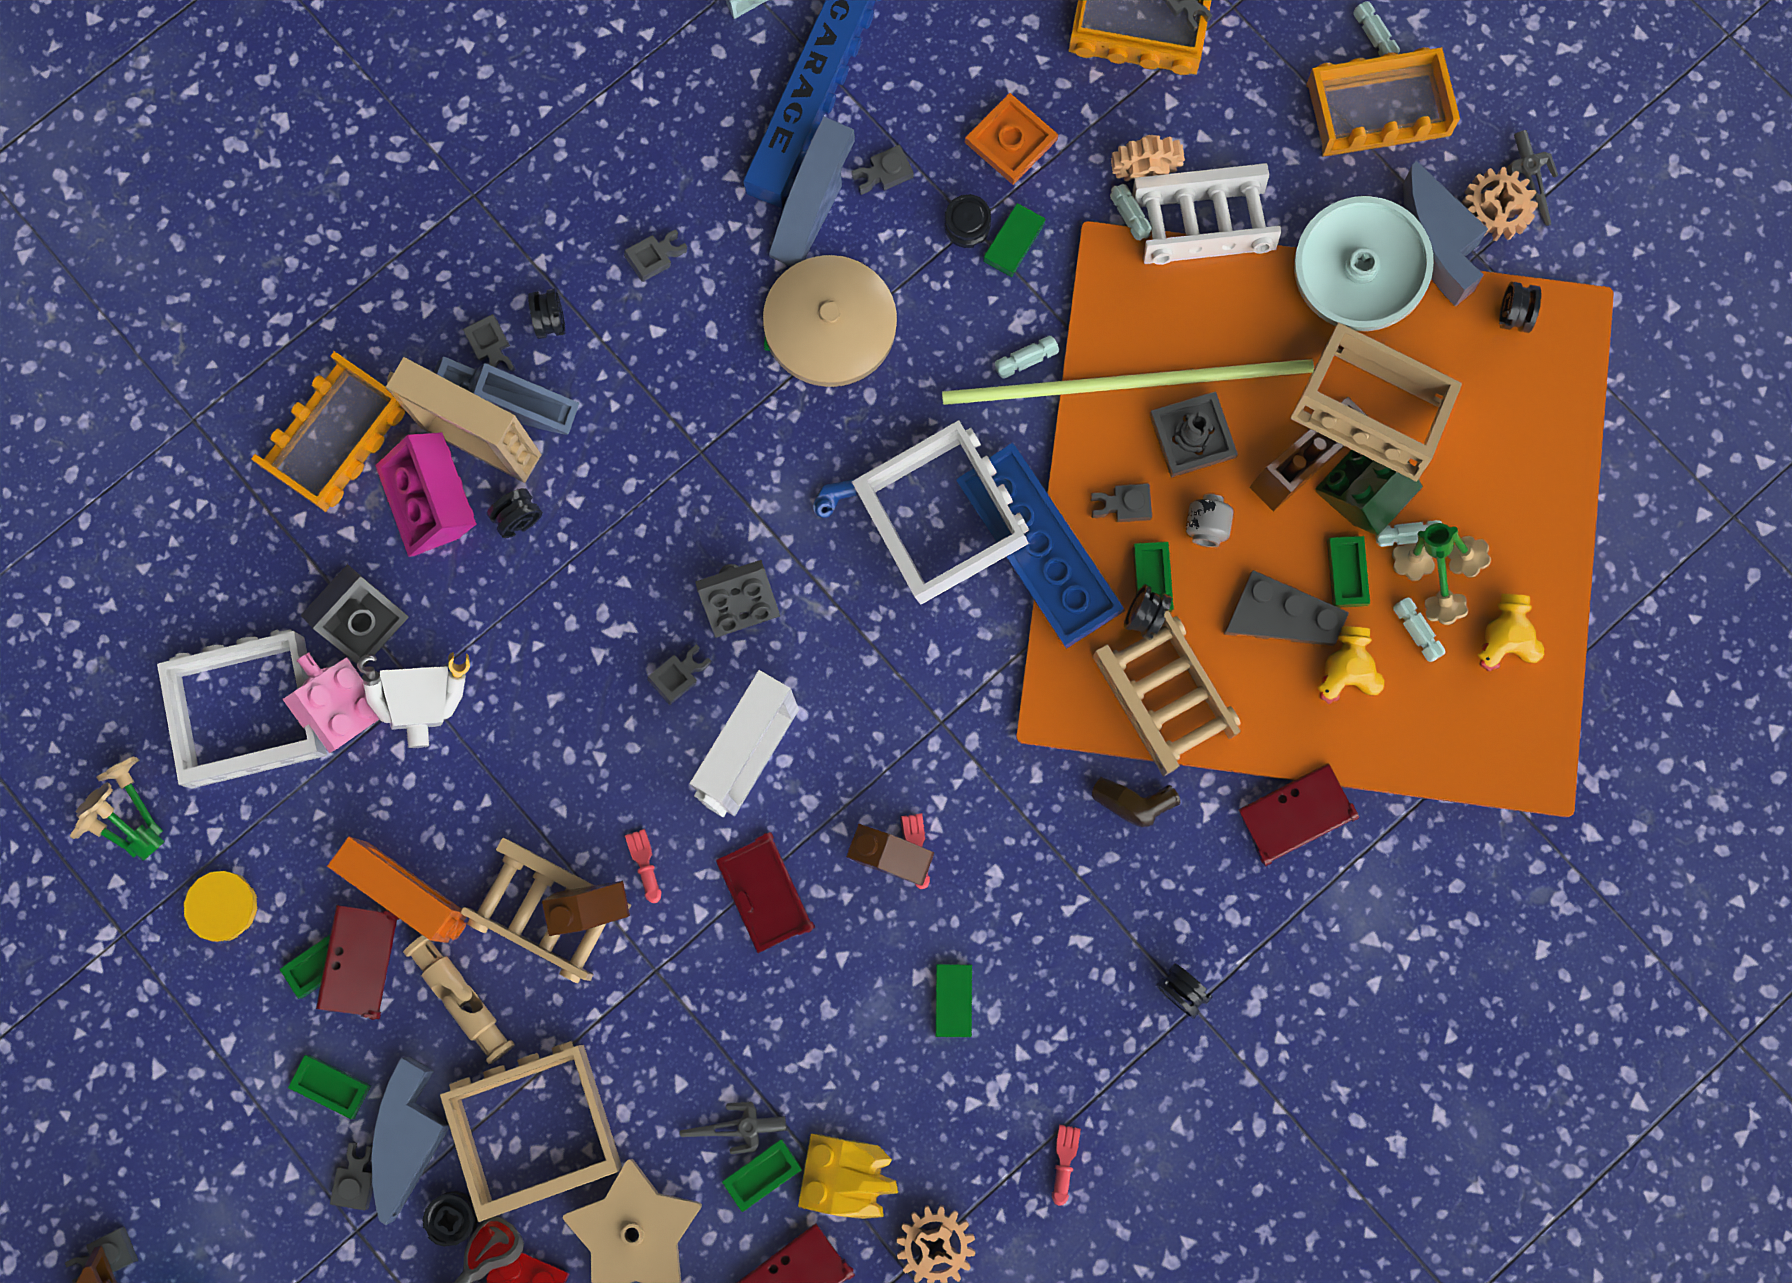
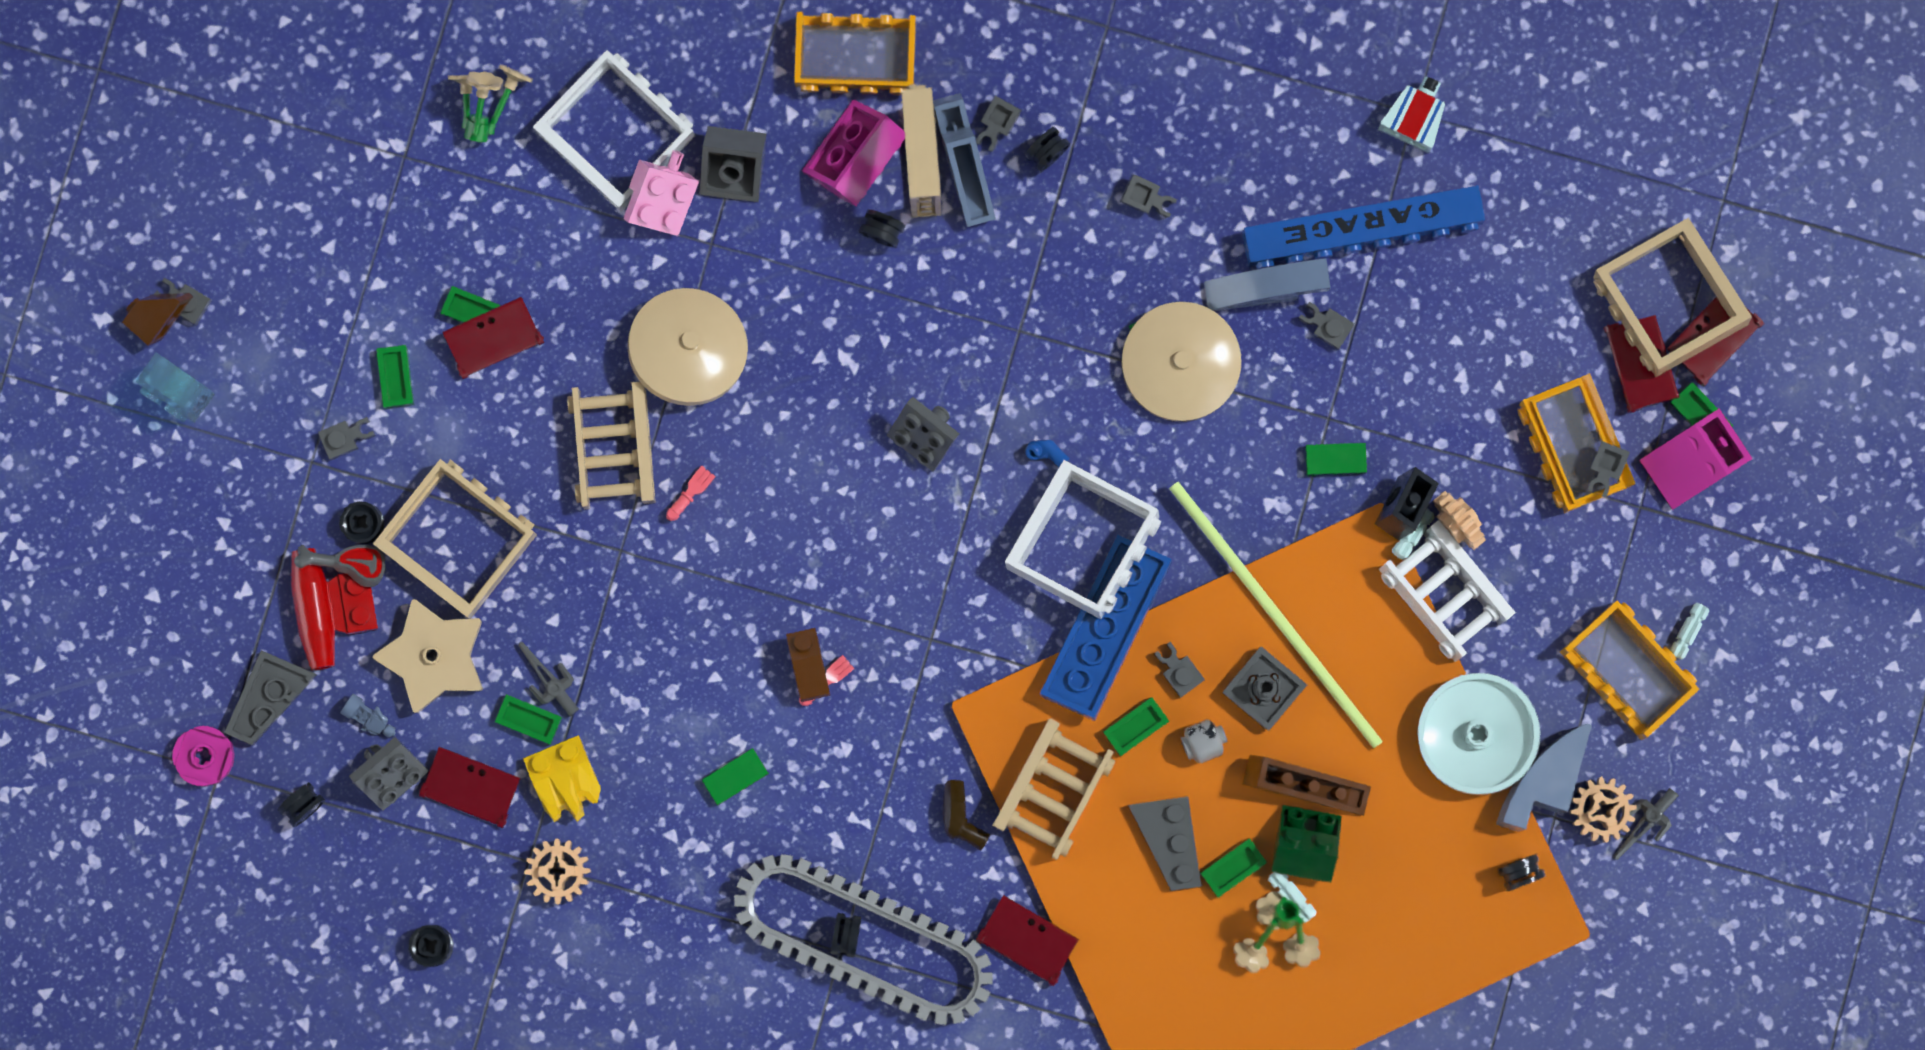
camera: 55 degrees right, 5 degrees up
(220, 906) = (467, 212): yellow tile -> none
(398, 890) = (559, 334): orange piece -> none
(403, 1139) = (394, 453): sand blue slope -> none
(414, 696) = (702, 250): white torso -> none
(455, 993) = (514, 420): tan piece -> none
(499, 773) = (687, 346): none -> tan dish
(585, 908) = (631, 474): reddish brown slope -> none
(676, 677) = (837, 426): dark grey plate -> none
(745, 745) = (815, 511): white window -> none
(769, 891) = (727, 595): dark red door -> none
(967, 221) = (1326, 414): black wheel -> none
(1011, 138) = (1415, 405): orange plate -> none
(1026, 357) = (1248, 527): light aqua axle -> none
(1066, 1150) = (682, 922): coral piece -> none
(1101, 196) = (1406, 503): none -> black brick
(1147, 612) = (1102, 737): black wheel -> none
(1231, 1005) = (841, 967): none -> light grey piece
(1351, 666) = (1160, 911): yellow animal -> none
(1363, 432) = (1332, 810): tan window -> none
(1419, 629) = (1222, 946): light aqua axle -> none
(1511, 634) = (1260, 1014): yellow animal -> none

